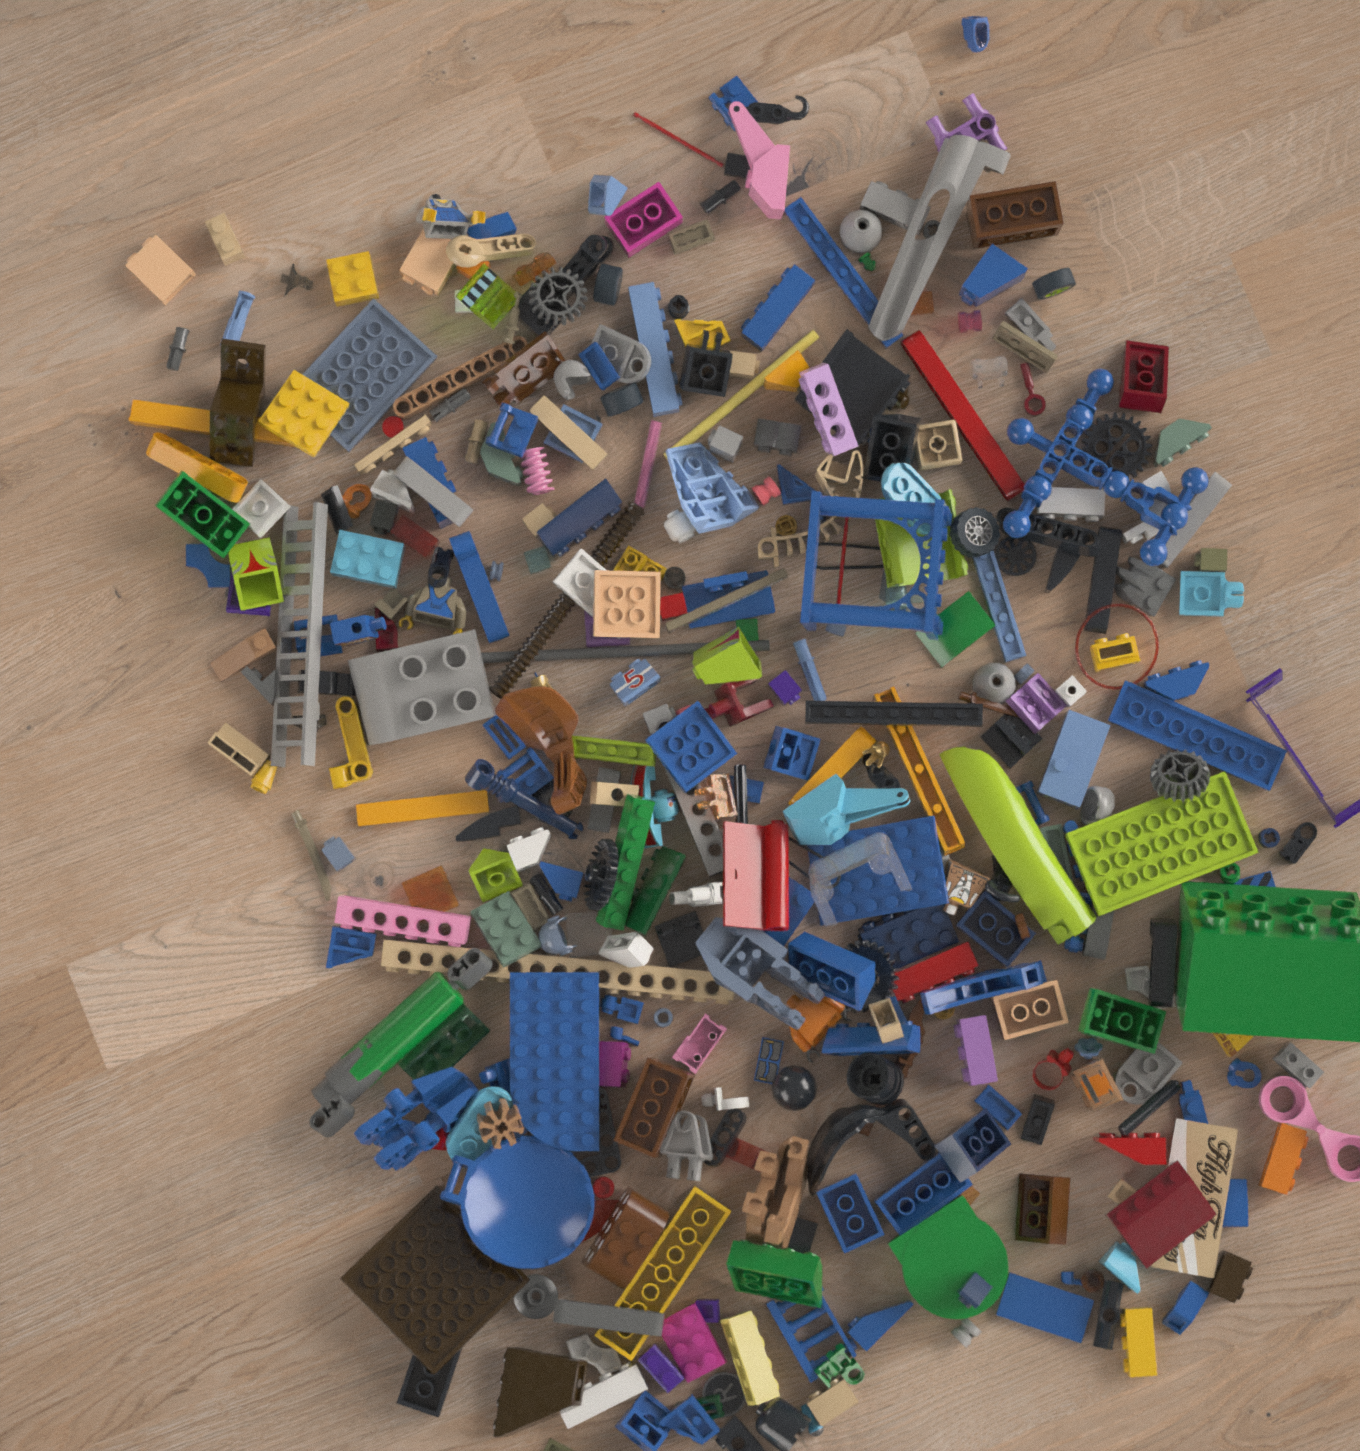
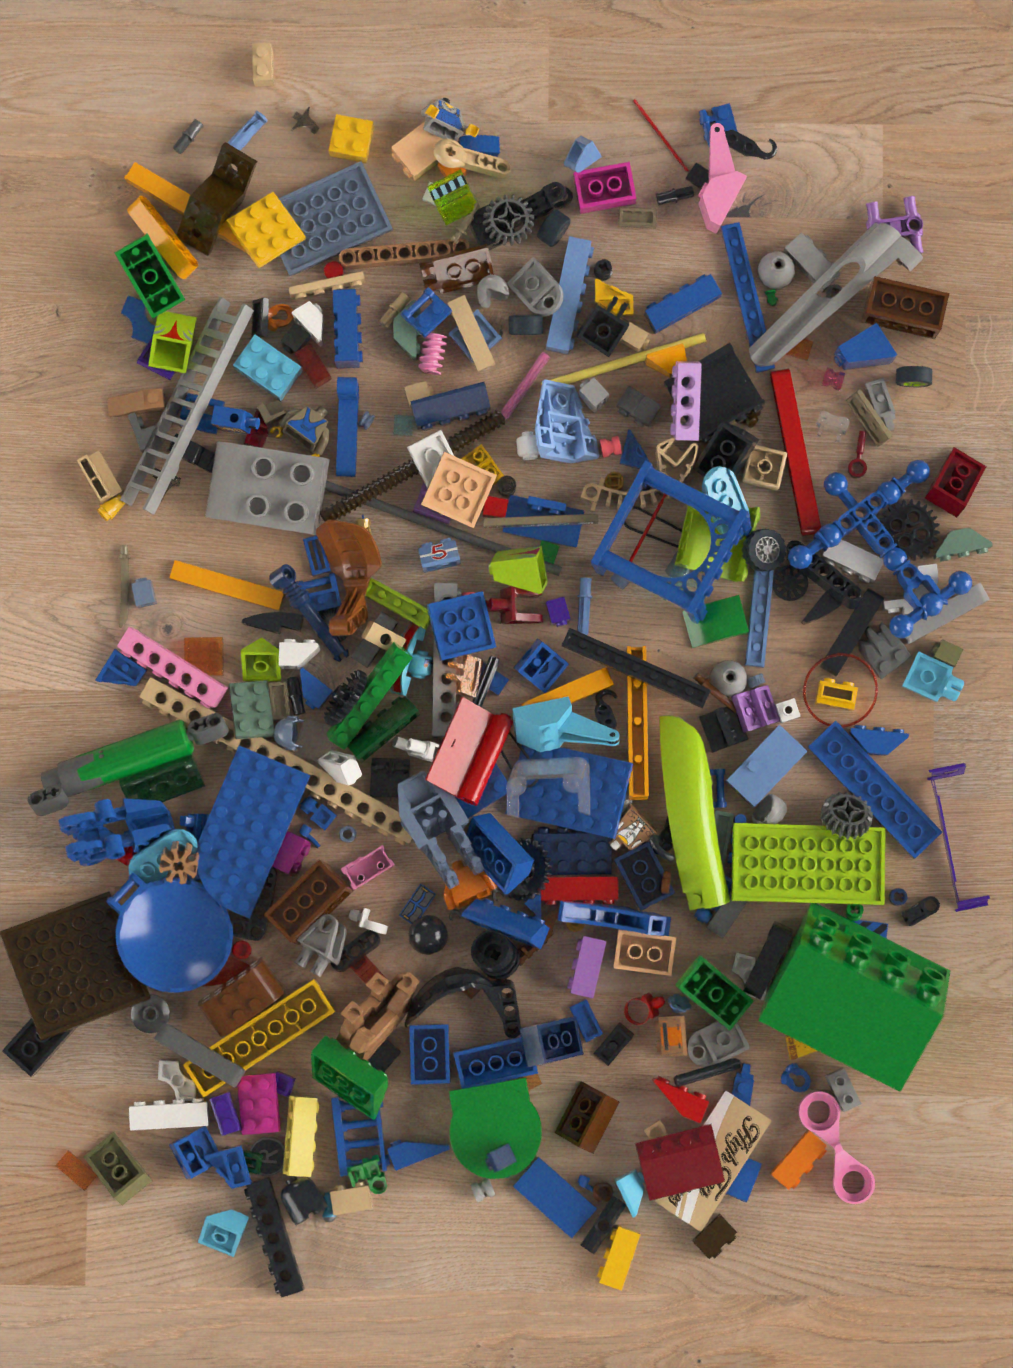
camera: 25 degrees right, 0 degrees up
(160, 269) = (201, 67): light nougat brick -> none
(261, 508) = (200, 291): white plate -> none
(355, 746) = (193, 515): yellow piece -> none
(432, 491) = (340, 334): light grey beam -> none
(440, 565) = (323, 396): black piece -> none
(450, 404) = (386, 271): dark grey axle -> none
(528, 272) = (491, 191): clear orange hinge -> none
(536, 1389) = (118, 1087): dark brown slope -> none
(599, 366) = (518, 290): blue tile -> none
(879, 751) = (611, 693): pearl gold piece -> none
(884, 1013) = (523, 905): tan piece -> none
(976, 32) = (938, 148): blue rock -> none
(1186, 1308) = (668, 1246): blue slope -> none

